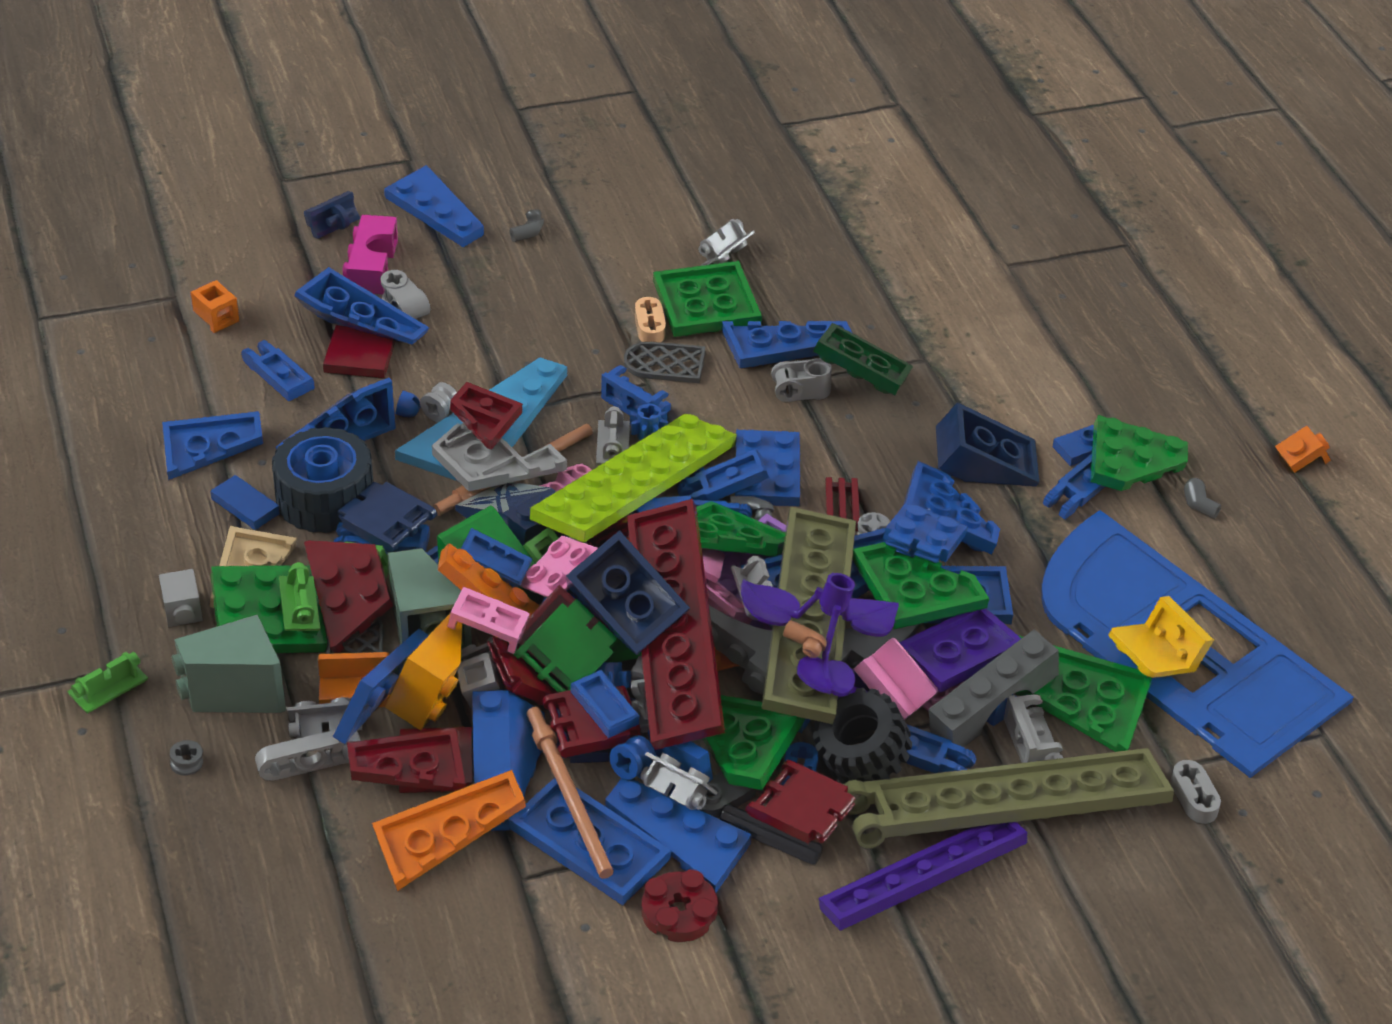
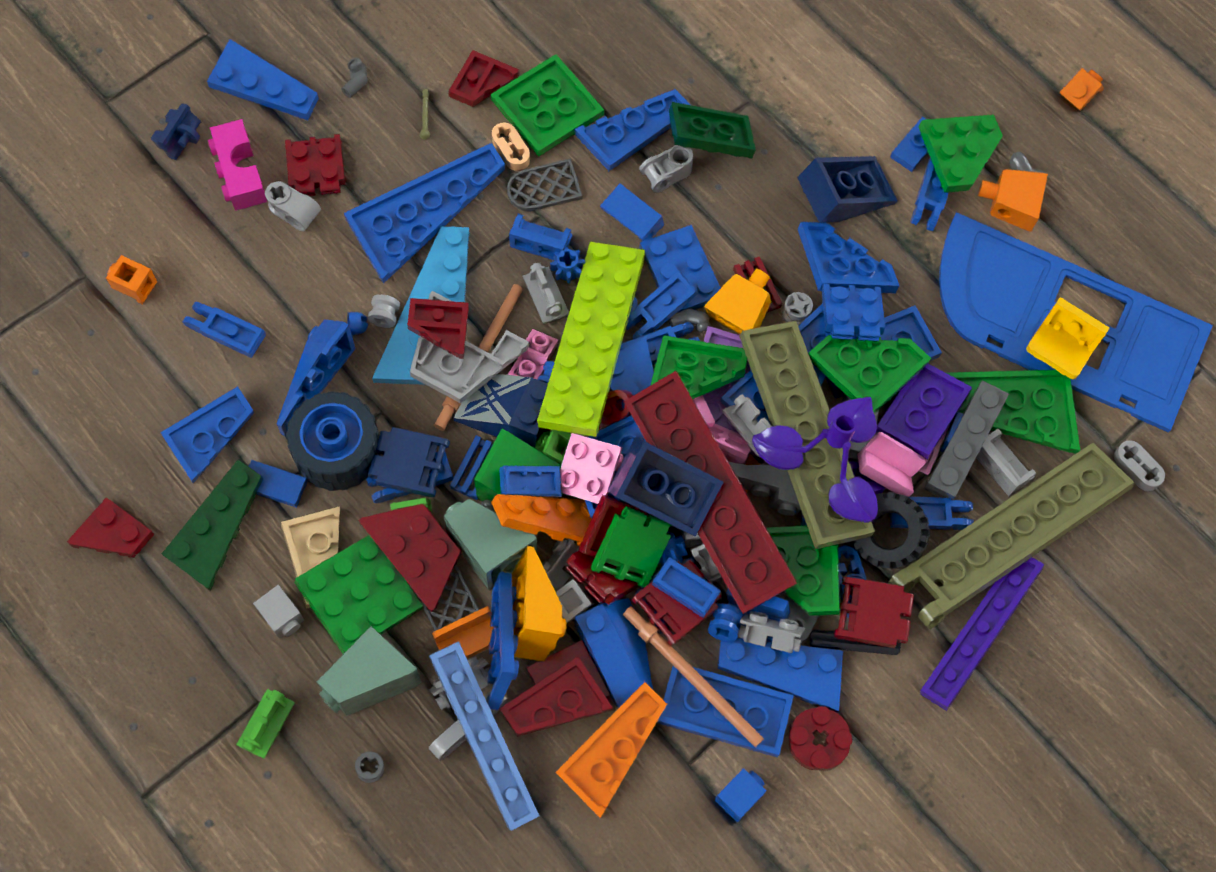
camera: 25 degrees left, 25 degrees up
(65, 487) = (110, 531): none -> dark red wing
(156, 516) = (207, 535): none -> dark green wing
(299, 600) = (386, 583): bright green hinge -> none
(314, 758) = (484, 736): none -> medium blue plate
(350, 305) = (255, 237): blue wedge -> none
(358, 353) = (282, 277): dark red tile -> none
(449, 278) = (315, 165): none -> dark red plate
(489, 616) = (567, 557): bright pink hinge -> none
(510, 341) = (409, 216): none -> blue wing
(559, 917) = (741, 794): none -> blue brick
(570, 286) = (424, 133): none -> olive hinge
(649, 257) = (480, 78): none -> dark red wing
(733, 240) = (532, 45): light grey hinge -> none
(742, 402) = (633, 213): none -> blue hinge
(812, 493) = (741, 302): none -> light orange torso
(812, 641) = (826, 469): nougat arm -> none
(1175, 514) = (1016, 197): none -> orange torso

